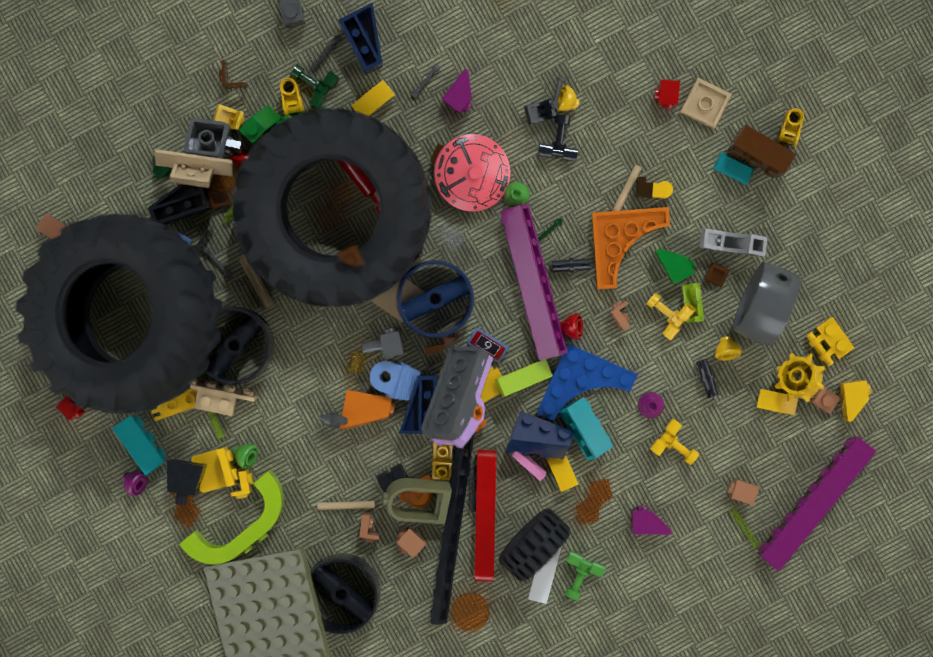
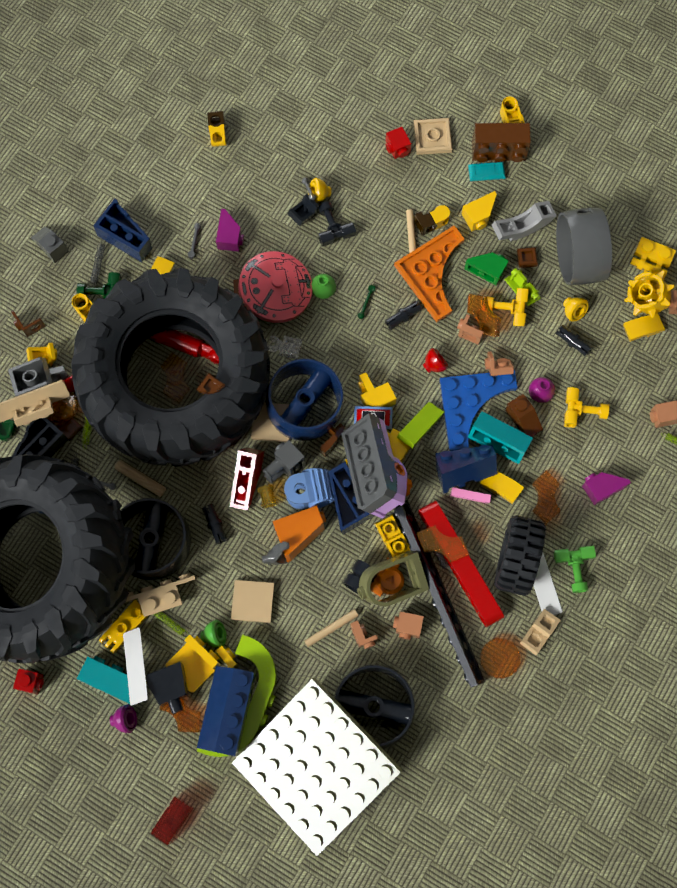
camera: 25 degrees left, 15 degrees down
(131, 585) = (172, 820): none -> clear red brick
(165, 446) = (135, 666): none -> white sticker
(219, 528) = (226, 711): none -> dark blue slope
(260, 124) = (66, 348): green slope -> none
(293, 445) = (252, 601): none -> tan tile
(297, 360) = (214, 524): none -> black pin
(347, 335) = (246, 477): none -> slope
(484, 501) = (451, 547): none -> clear orange tile
(501, 330) = (375, 397): none -> yellow brick
(517, 609) = (540, 631): none -> tan slope
(533, 282) = (380, 344): magenta brick -> none
(619, 422) = (524, 415): none -> reddish brown slope
(625, 364) = (499, 367): none -> nougat bracket
(641, 317) = (487, 320): none -> clear orange tile
(700, 207) = (479, 211): none -> yellow slope

